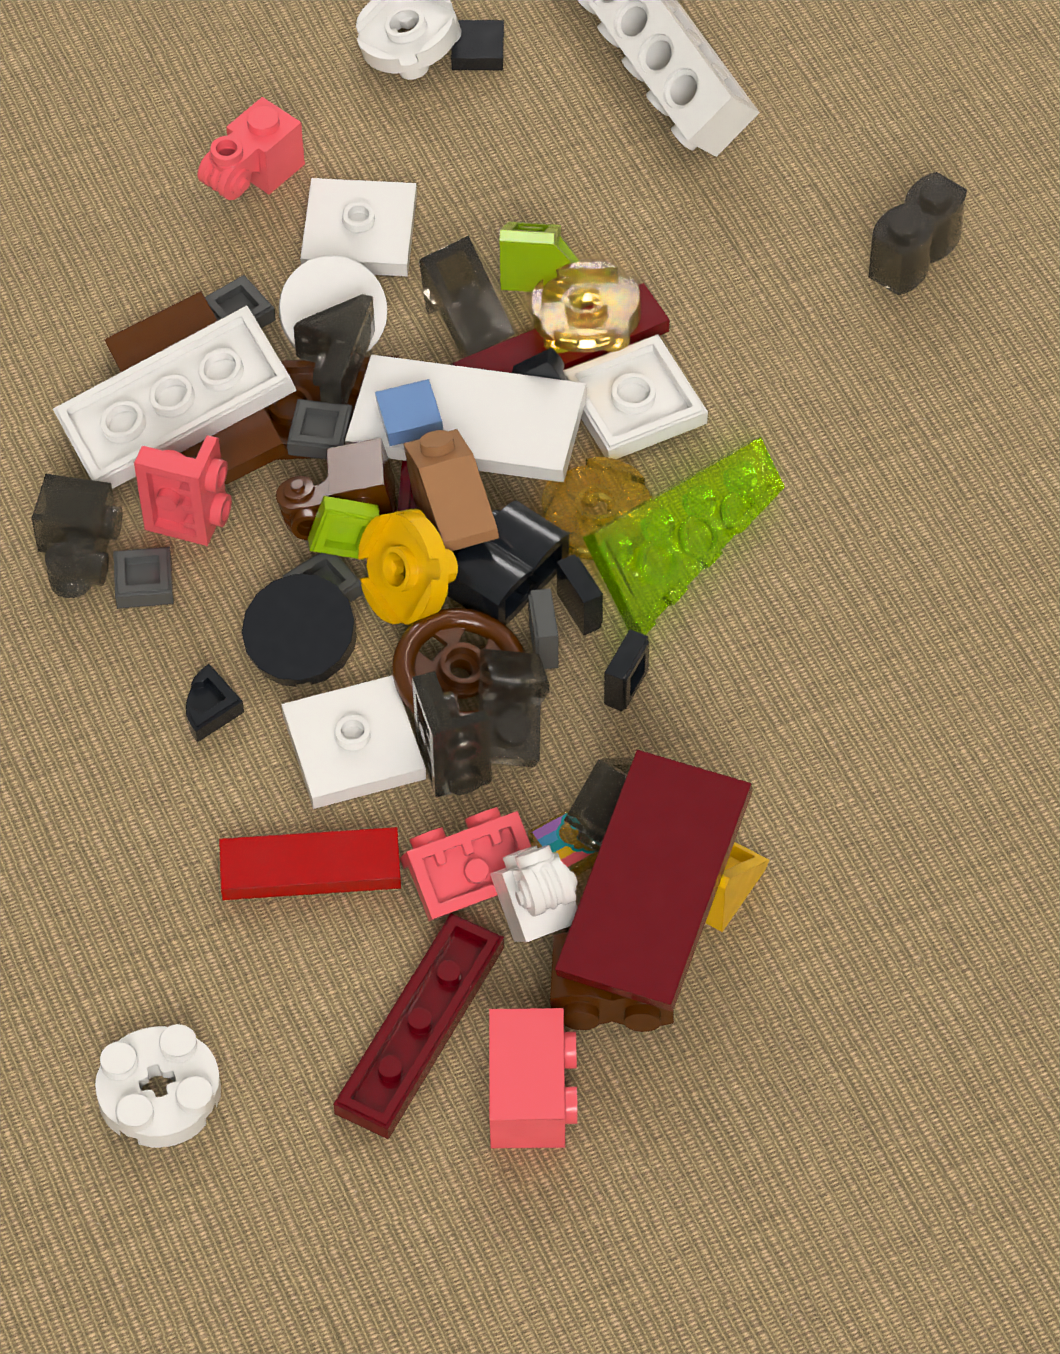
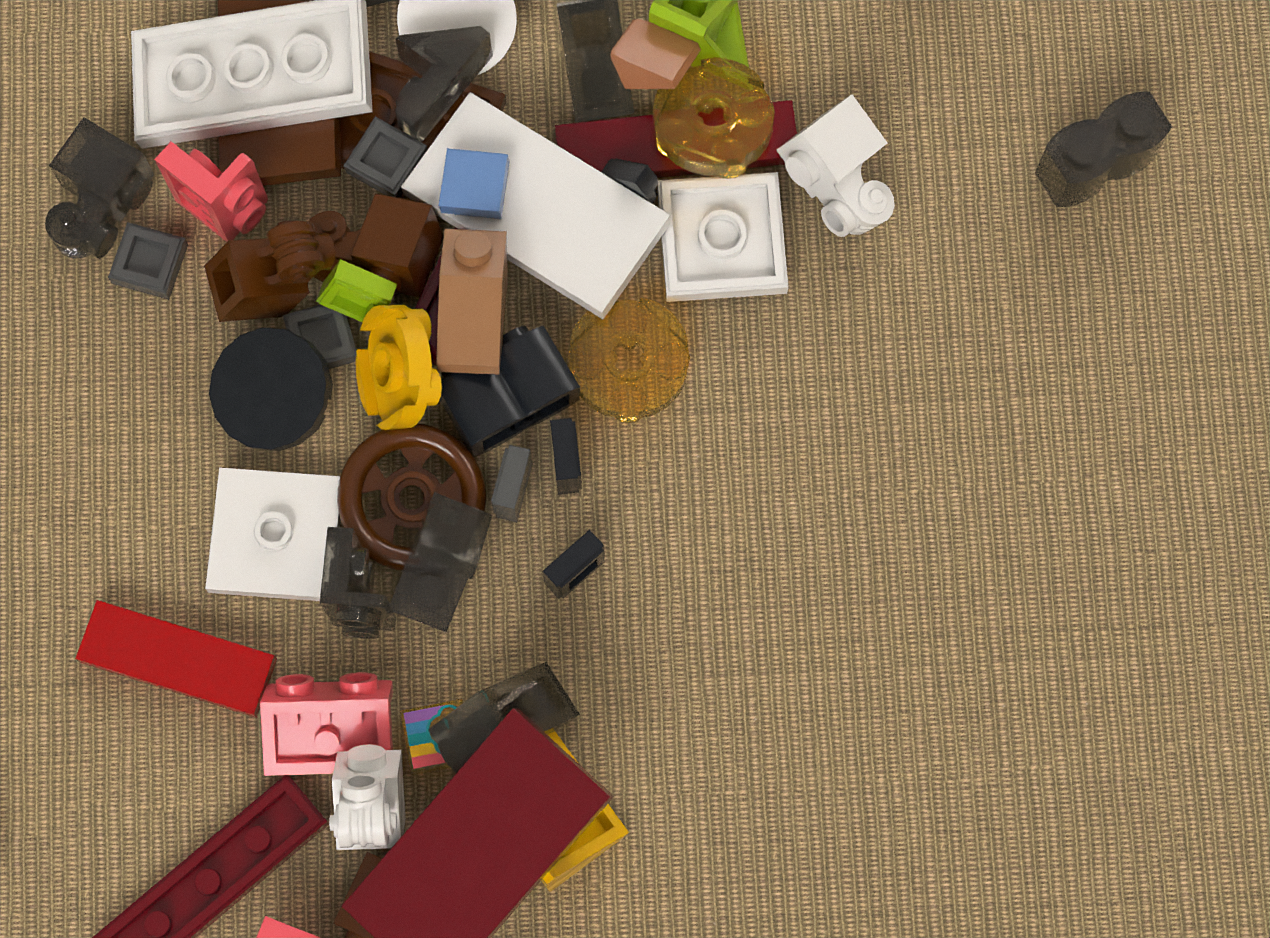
camera: 20 degrees right, 20 degrees up
(210, 703) = (154, 434): black tile -> none
(261, 542) = (268, 274): none -> reddish brown brick
(515, 277) = (652, 56): none -> nougat slope
(674, 535) = (677, 428): clear neon green wing -> none
(698, 312) = (828, 165): none -> white brick

